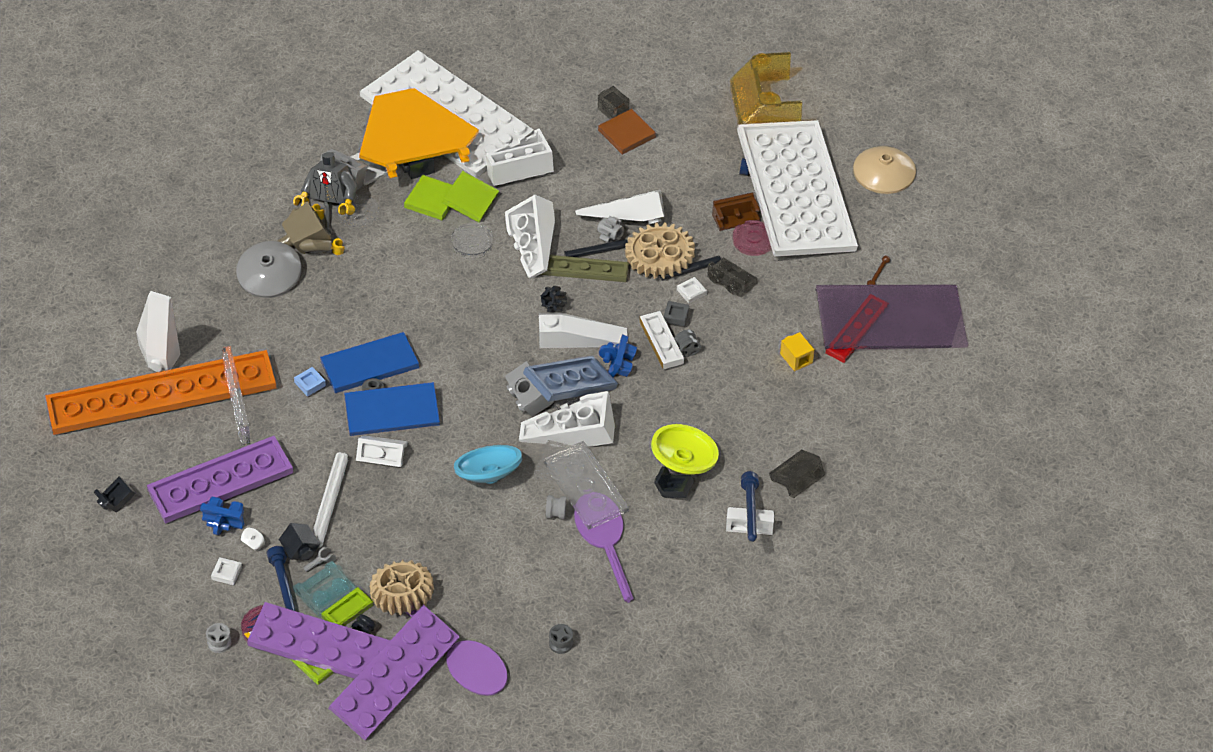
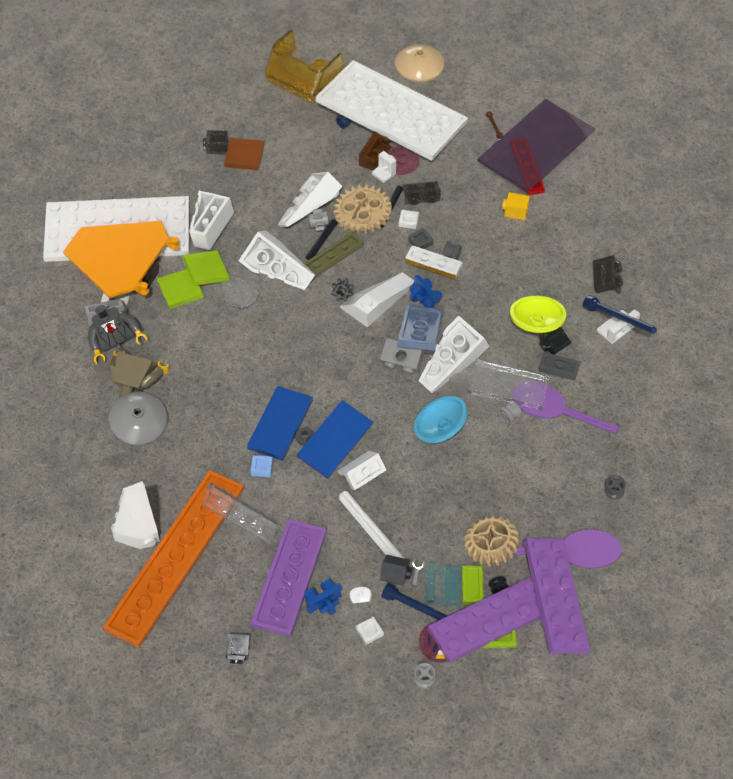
camera: 45 degrees left, 5 degrees up
(650, 508) = (559, 366): none -> dark grey plate
(724, 234) = (386, 167): none -> white bracket

